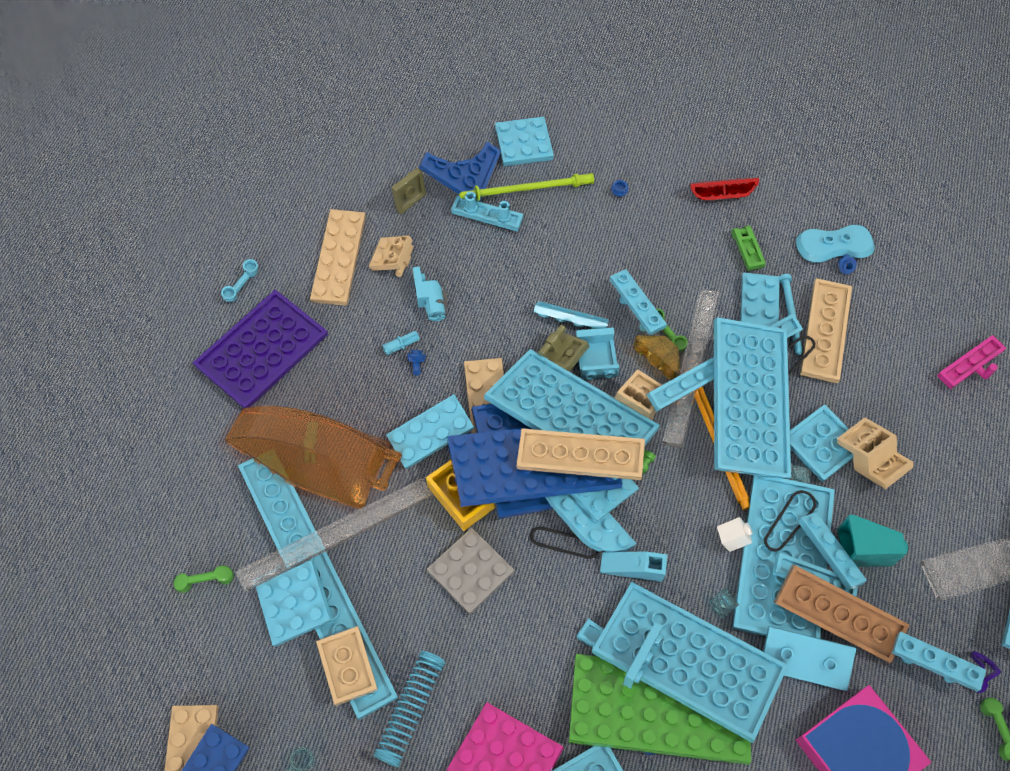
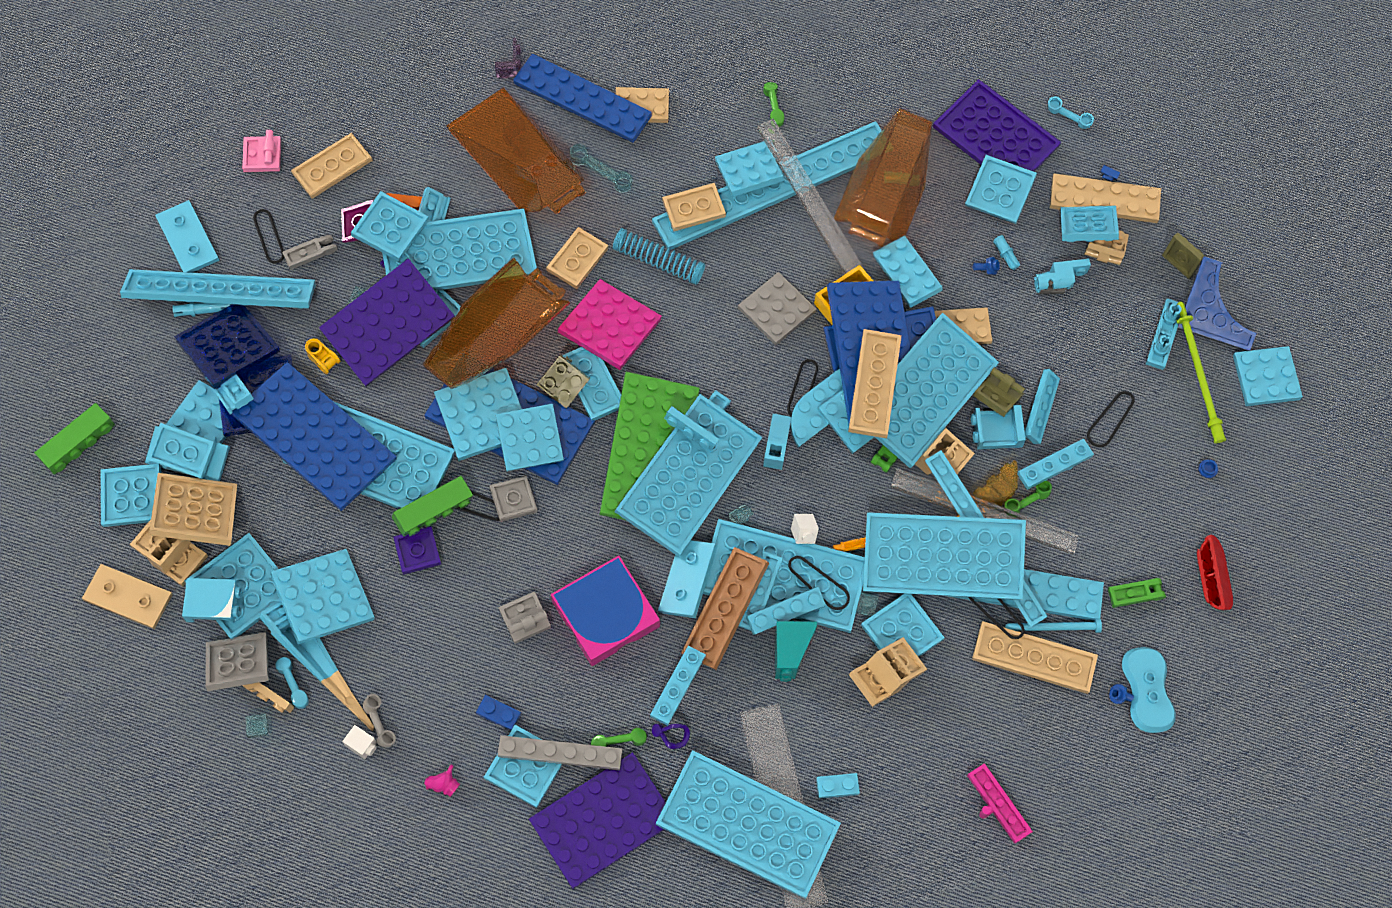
camera: 90 degrees right, 5 degrees up
(313, 249) = (1109, 173): none -> blue plate
(330, 343) = (1001, 189): none -> medium azure plate
(374, 264) = (1089, 223): none -> medium azure plate
(547, 251) = (1103, 413): none -> black piece
(990, 503) = (837, 785): none -> medium azure plate

